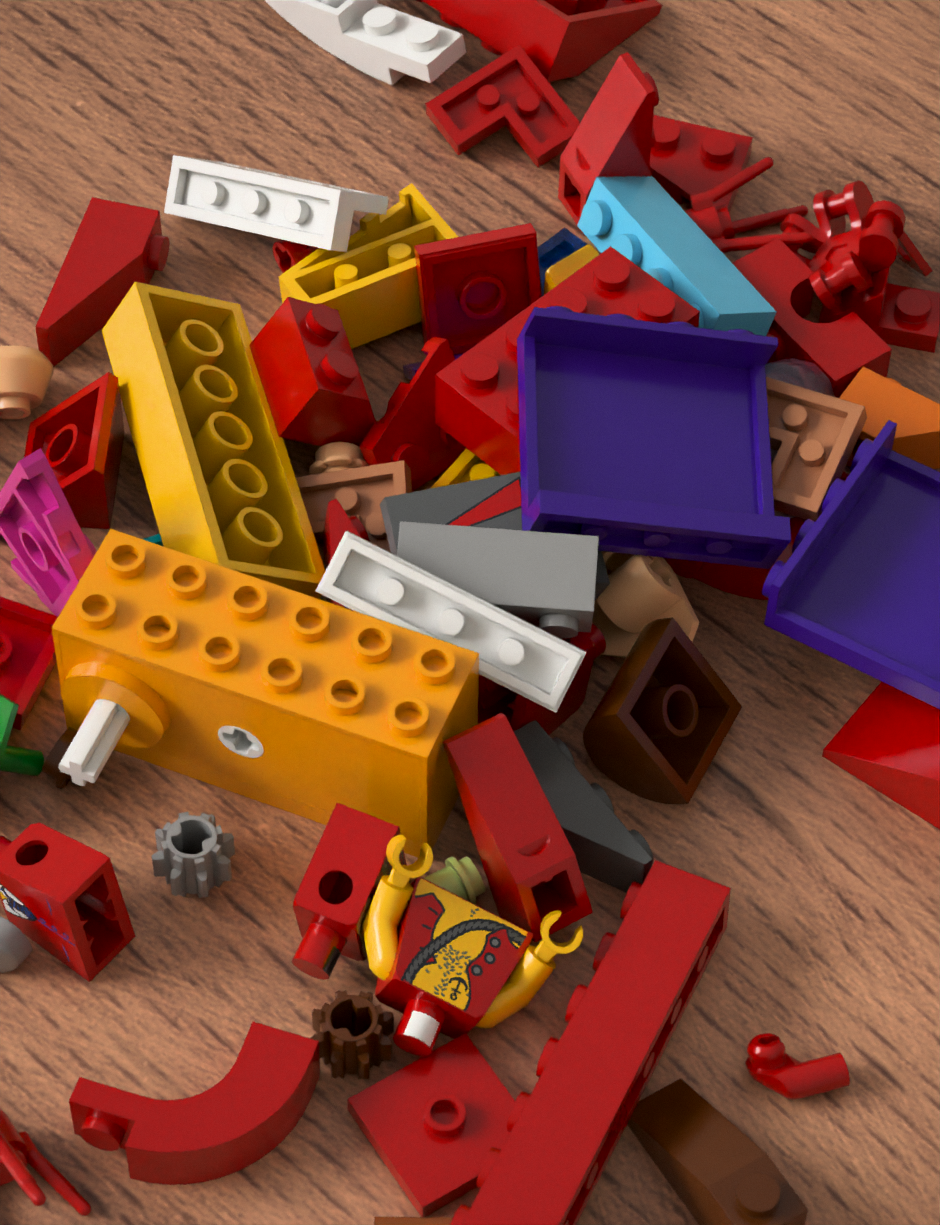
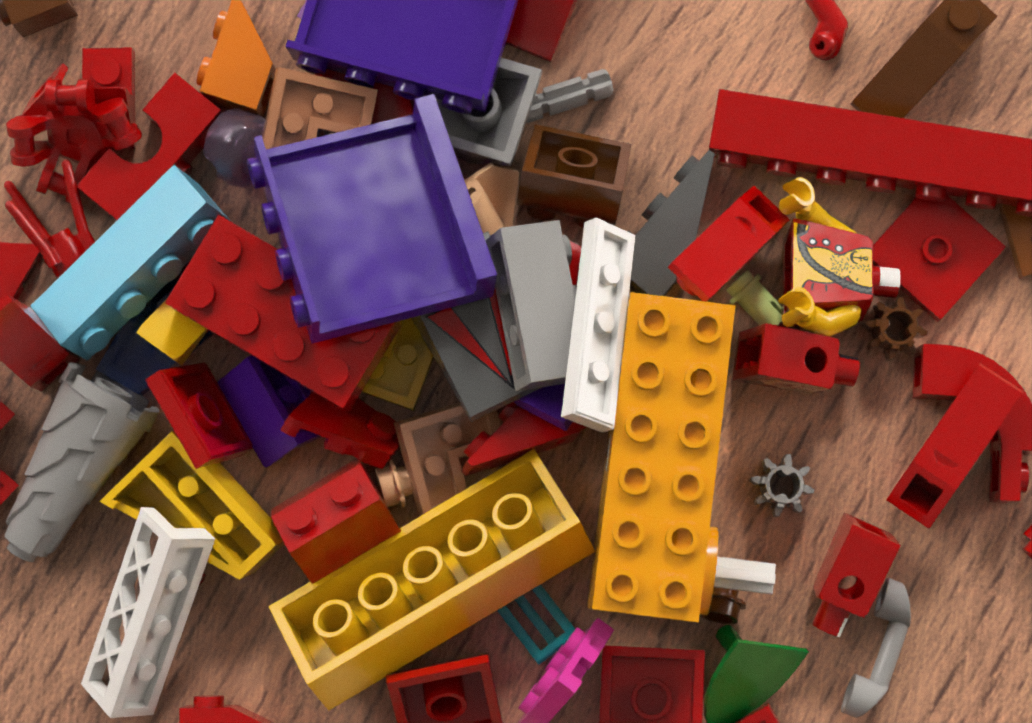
camera: 105 degrees left, 30 degrees up
(164, 1029) = (954, 445): none -> red slope
(470, 180) = (80, 447): none -> light grey cone
(737, 634) = (496, 132): none -> light grey slope
(771, 751) = (571, 94): none -> light grey axle

